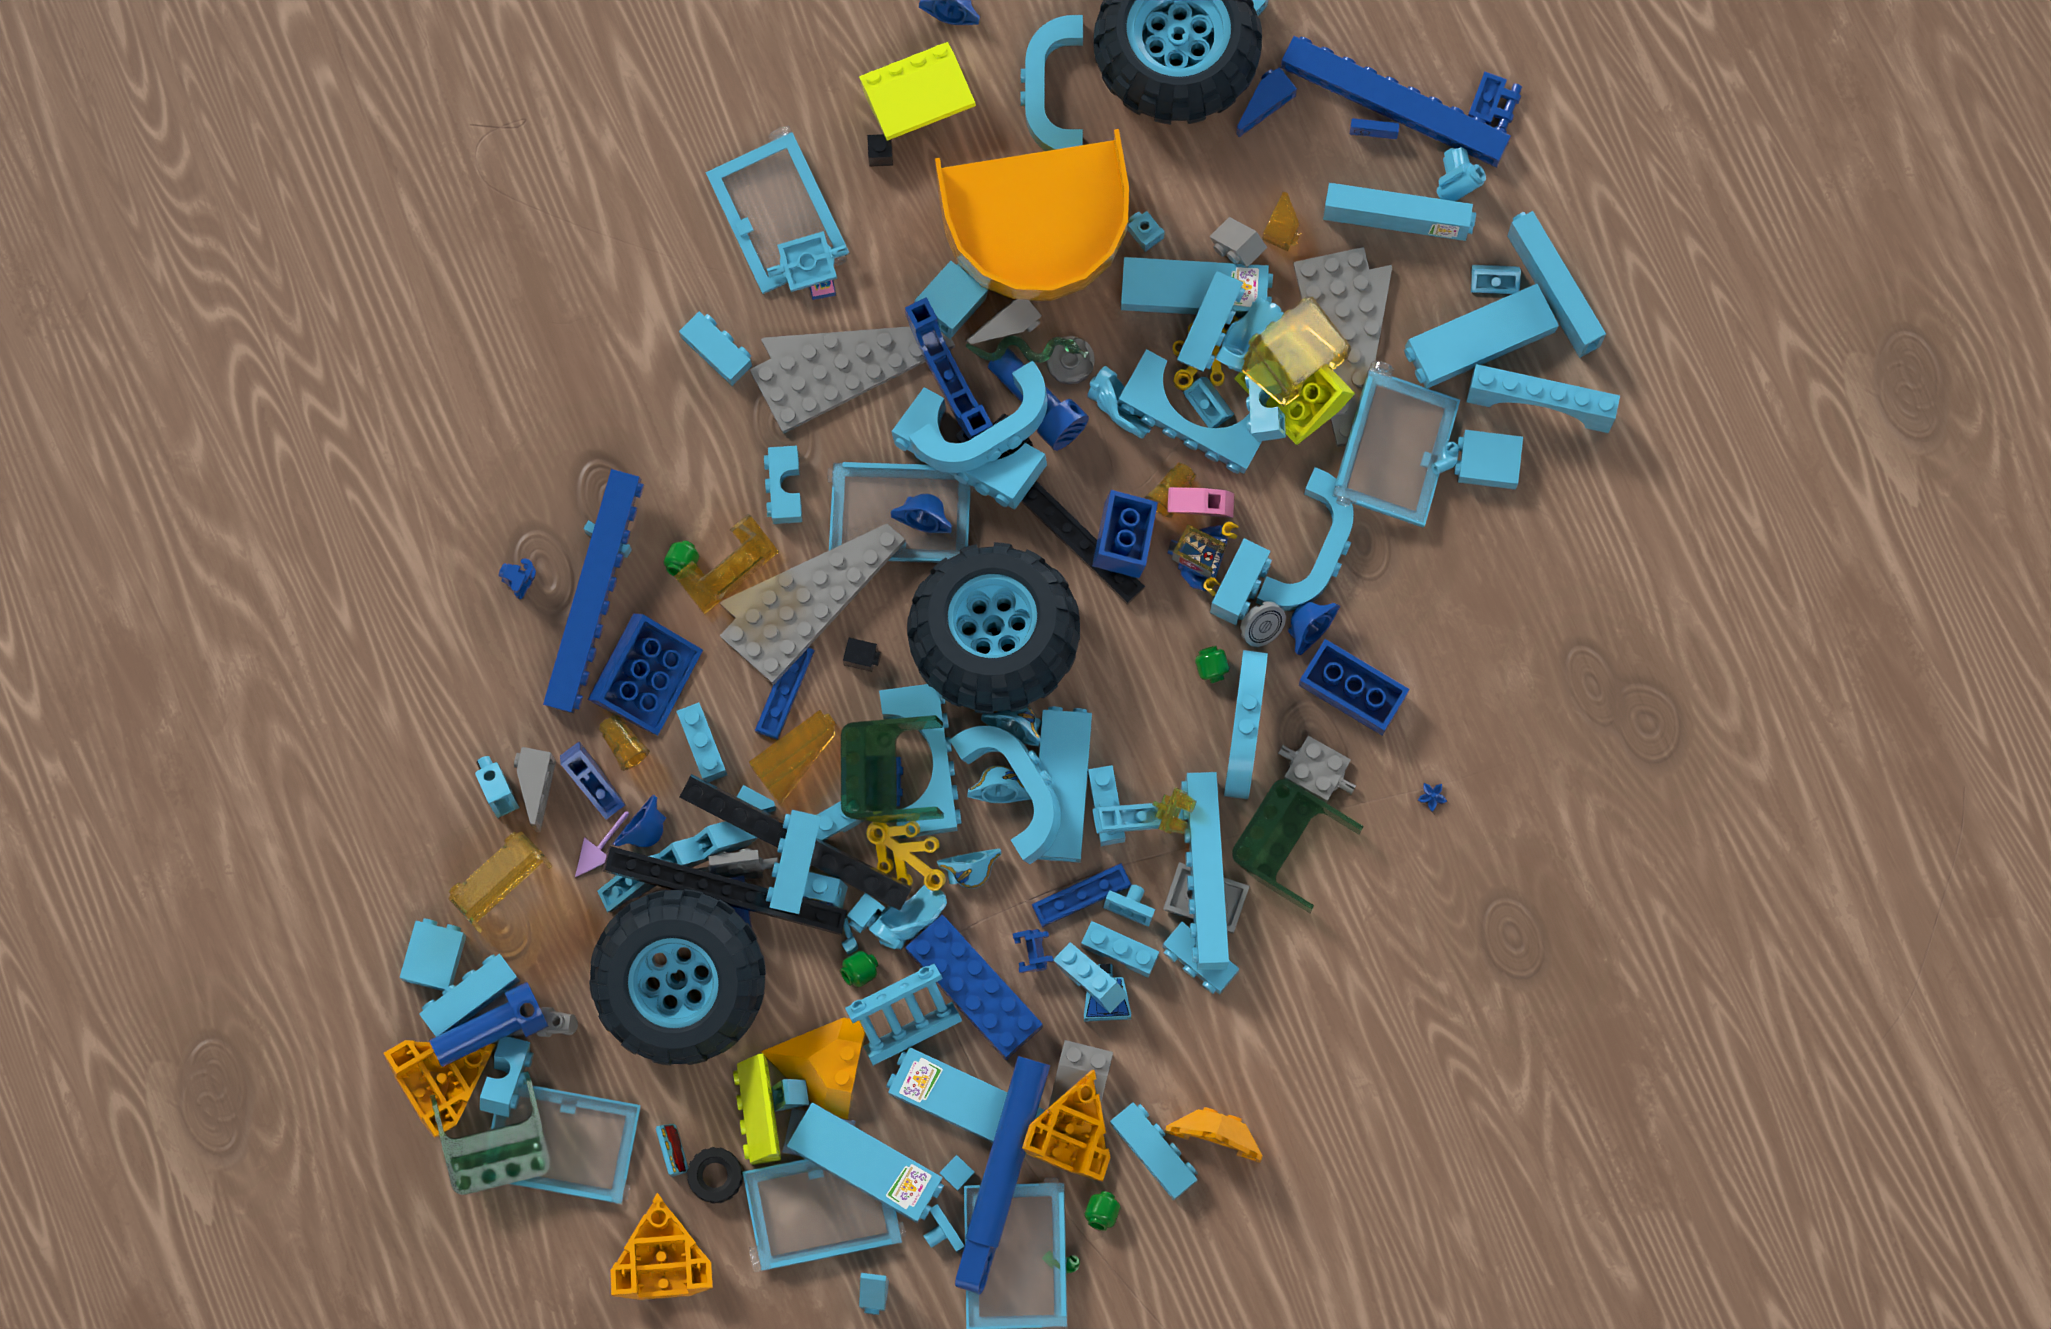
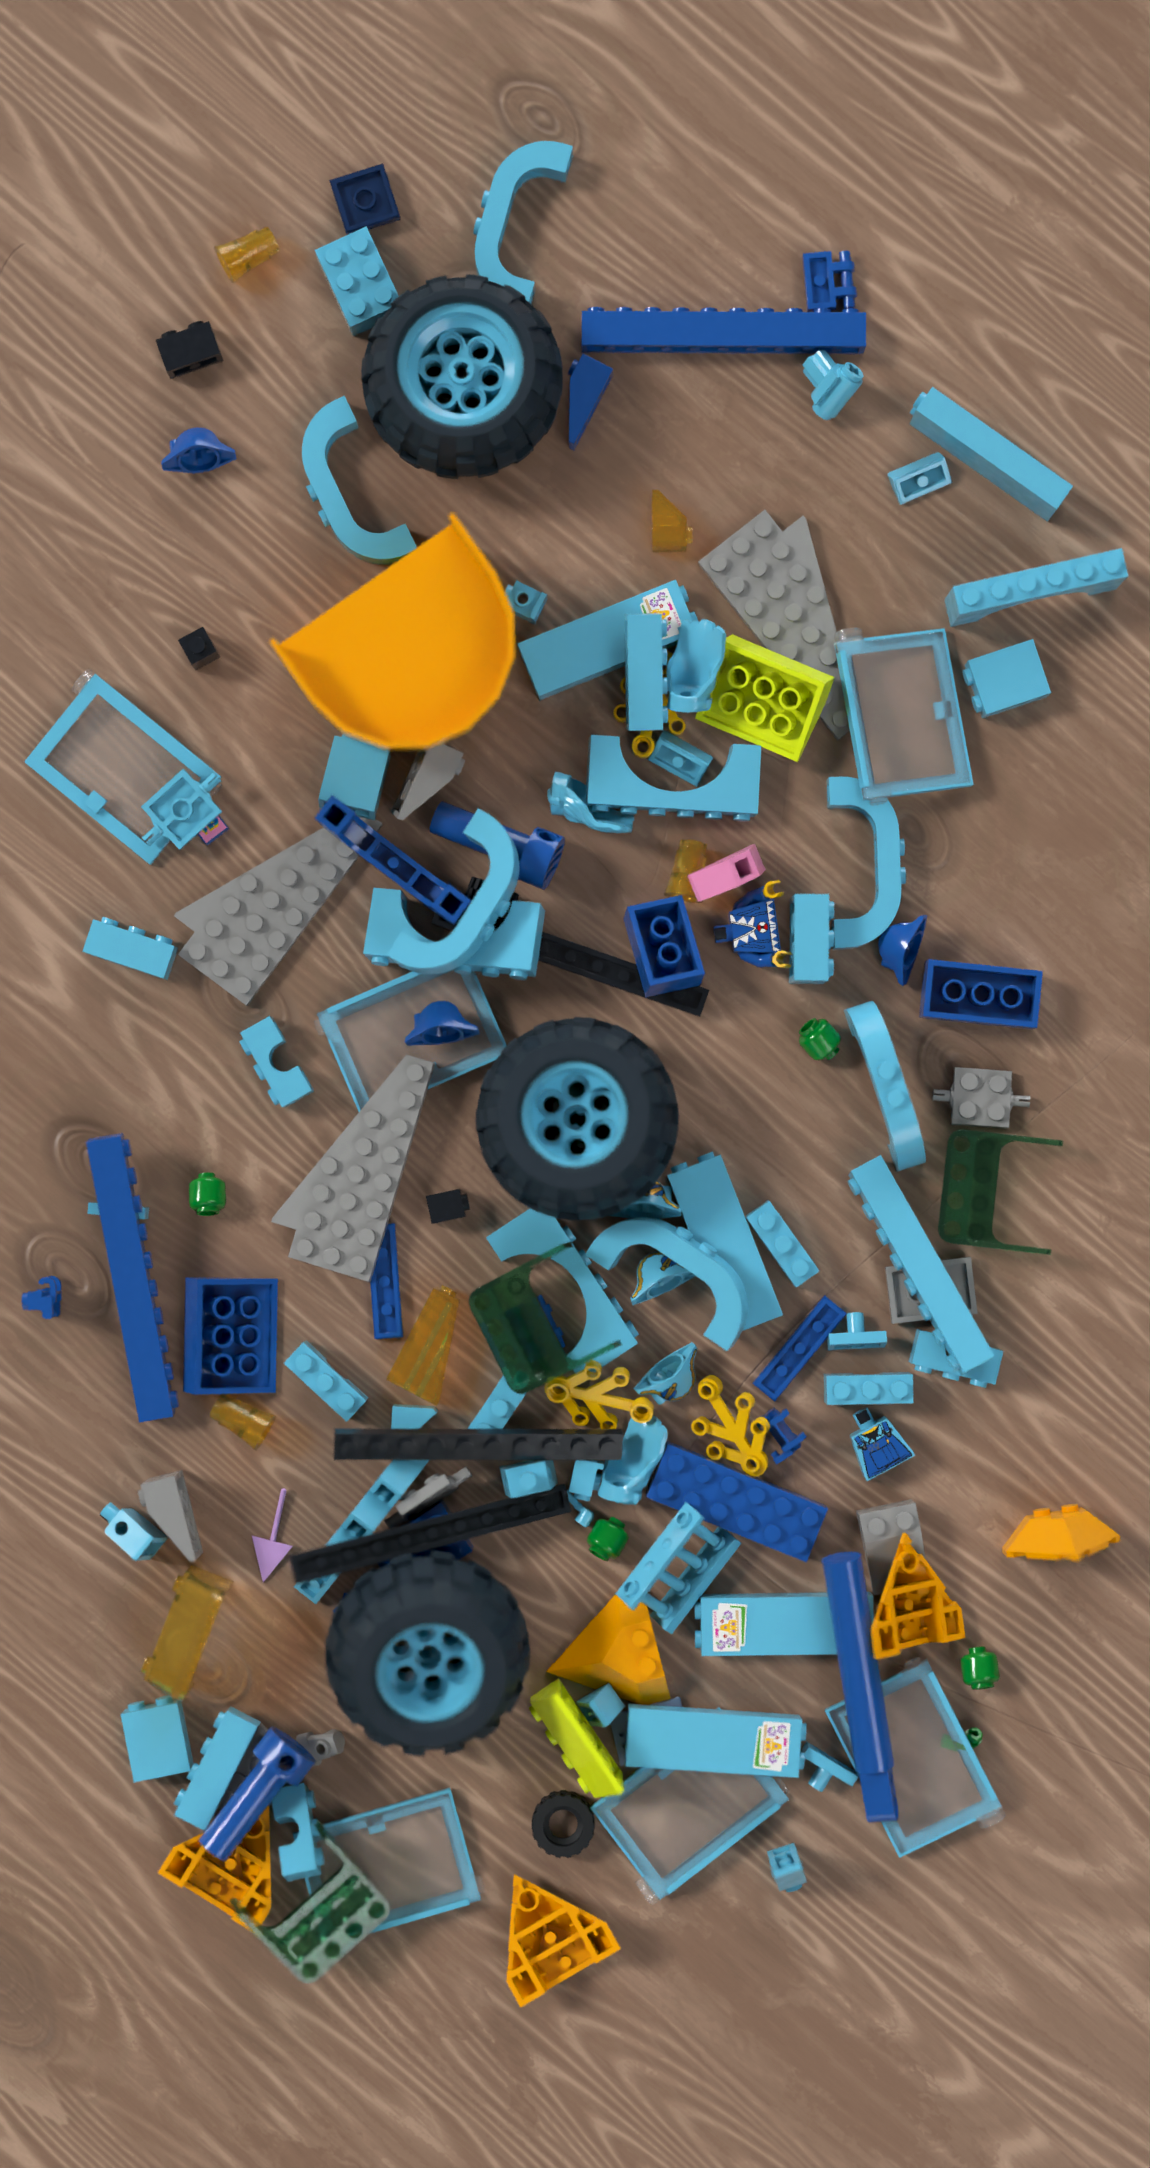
camera: 25 degrees left, 10 degrees up
(591, 780) = (228, 1474): blue slope -> none
(644, 828) = (309, 1500): blue hat -> none
(672, 1149) = (505, 1818): slope -> none
(732, 571) = (270, 1183): clear yellow windscreen -> none
(794, 862) = (490, 1470): medium azure brick -> none
(917, 91) = (208, 565): neon yellow slope -> none
(957, 1172) = (810, 1699): medium azure tile -> none
(1000, 930) = (733, 1429): none -> yellow plant
(1070, 345) = (503, 766): clear green animal -> none
(1070, 367) = (512, 781): light grey tile -> none
(1091, 977) = (854, 1437): medium azure arch -> none
(1127, 818) = (823, 1243): medium azure plate -> none
(1153, 1151) = (1002, 1581): medium azure brick -> none
(1170, 808) = (859, 1207): clear yellow hips -> none
(1203, 538) = (748, 913): clear yellow piece -> none
(1237, 242) = (631, 569): light grey brick -> none
(1263, 422) = (732, 712): medium azure arch -> none
(1263, 624) = (854, 972): light grey tile -> none
(1294, 350) = (752, 664): clear yellow windscreen -> none
(1374, 128) = (715, 373): blue tile -> none
(1399, 212) = (786, 454): medium azure brick -> none
(1432, 796) = (1113, 1068): blue plant -> none
(1448, 458) = (964, 699): medium azure arm -> none
(1480, 336) = (936, 549): medium azure brick -> none

